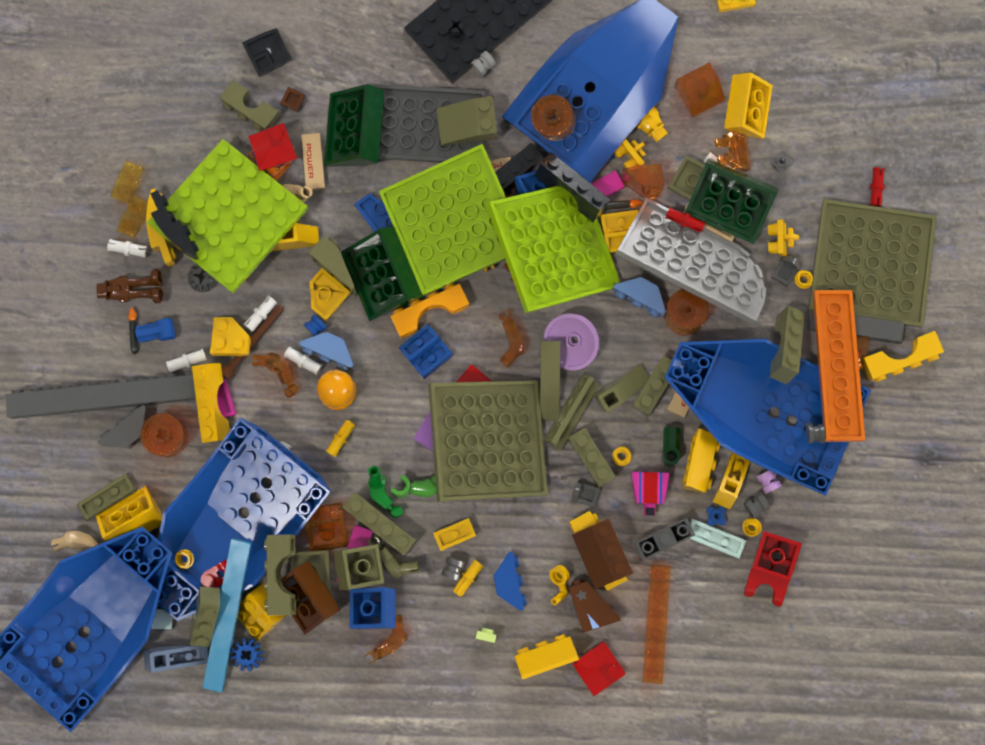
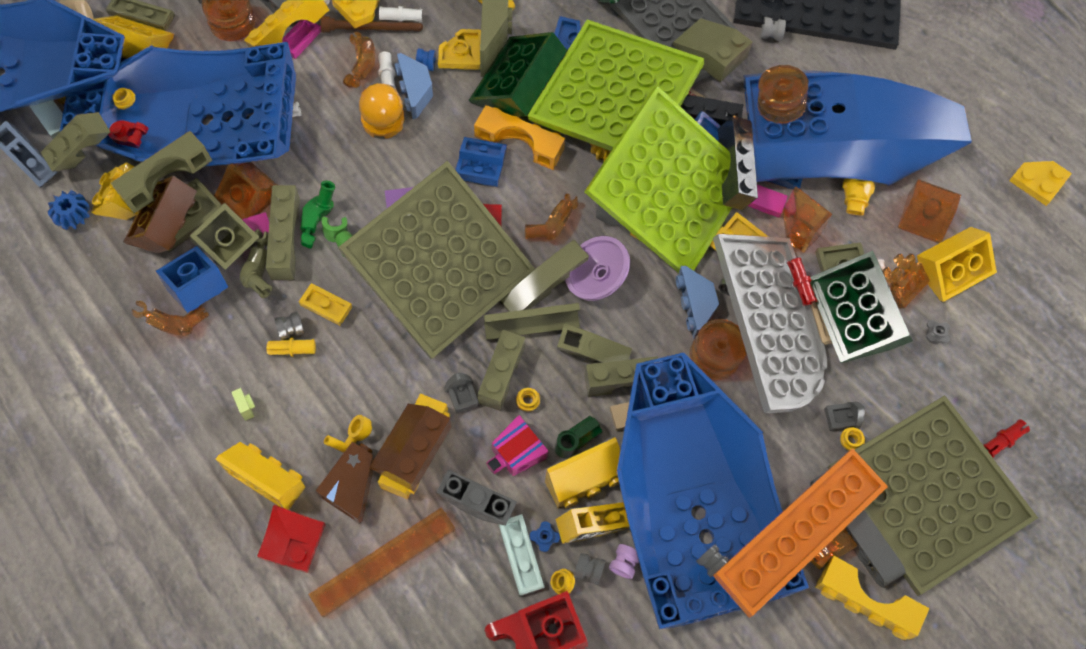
camera: 45 degrees right, 15 degrees down
(227, 615) = (91, 159): dark azure tile -> none
(340, 438) = (340, 147): yellow axle -> none
(509, 583) = (315, 385): blue slope -> none
(623, 204) = (759, 222): pearl dark grey piece -> none
(632, 153) = (814, 188): yellow hips -> none
(779, 229) = (873, 387): yellow hips -> none
(787, 359) = (775, 464): olive arch -> none

